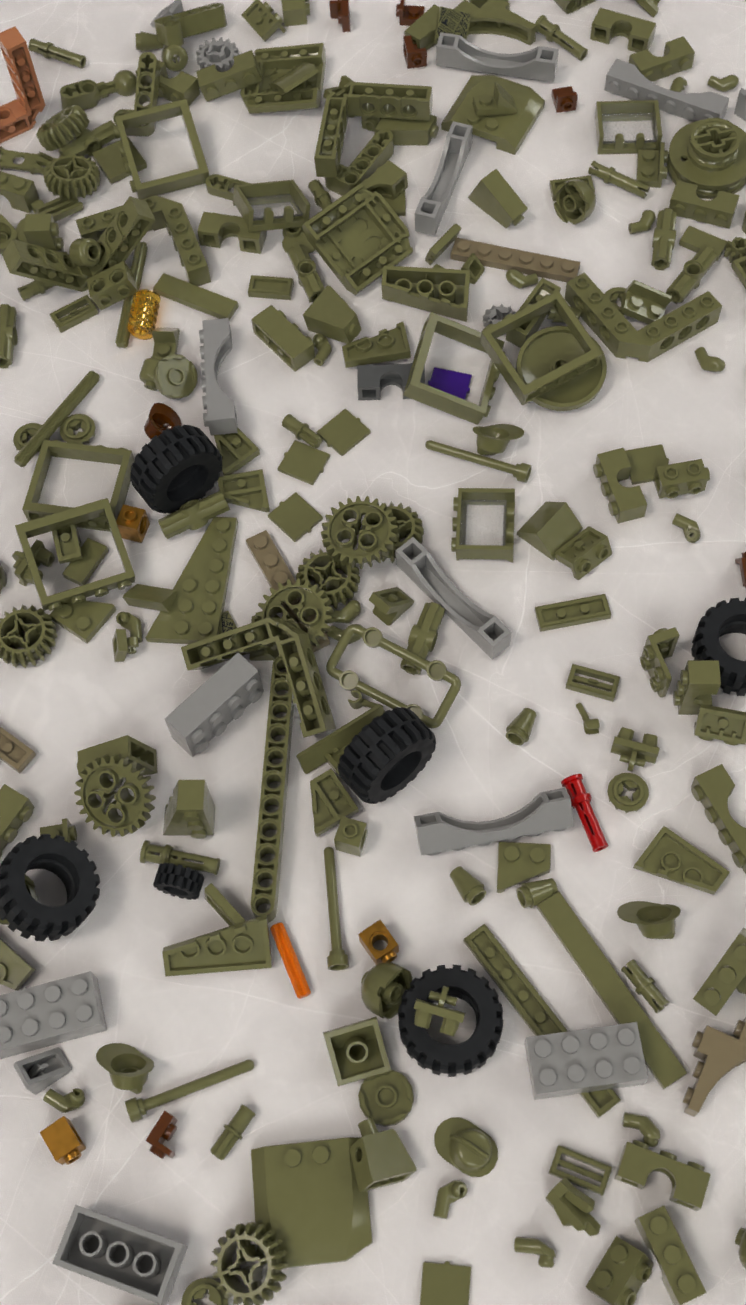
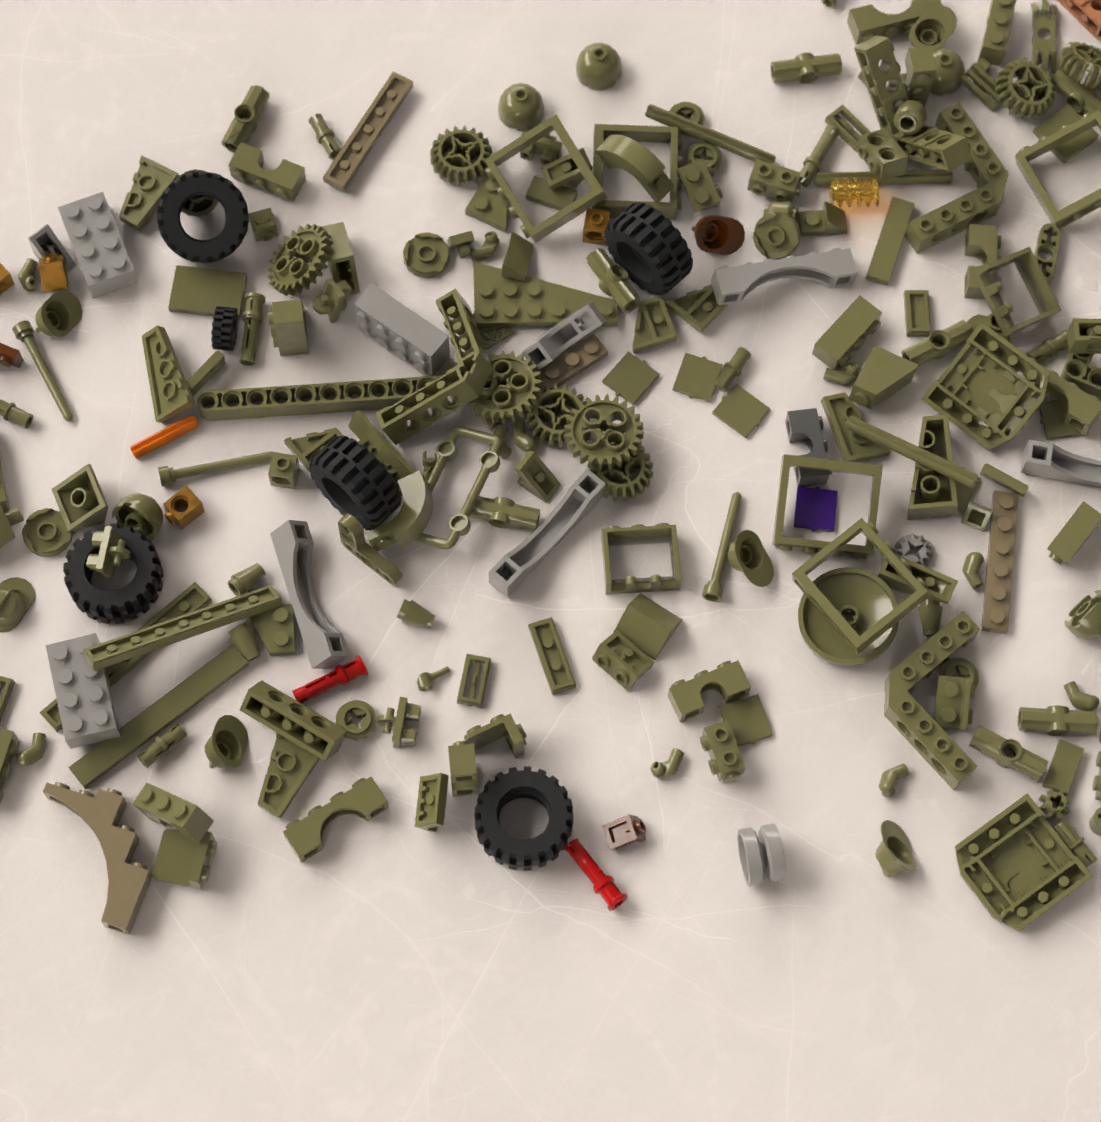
camera: 75 degrees right, 5 degrees up
(72, 1066) = (53, 272): none -> pearl gold brick
(76, 469) = (637, 160): none -> olive arch
(103, 342) = (813, 163): none -> olive pin
(110, 429) = (699, 185): none -> olive bracket
(118, 372) = (774, 181): none -> olive brick
(124, 903) = (203, 289): none -> olive tile
(127, 682) = (426, 255): none -> olive tile
(165, 768) = (332, 299): none -> olive hips
(243, 563) = (563, 335): none -> light grey arch
(414, 296) = (911, 451): none -> olive axle
(427, 712) = (412, 517): none -> olive arch
(444, 766) = (353, 540): none -> olive beam
(526, 950) = (182, 627): none -> olive tile
(629, 848) = (293, 720): none -> olive brick

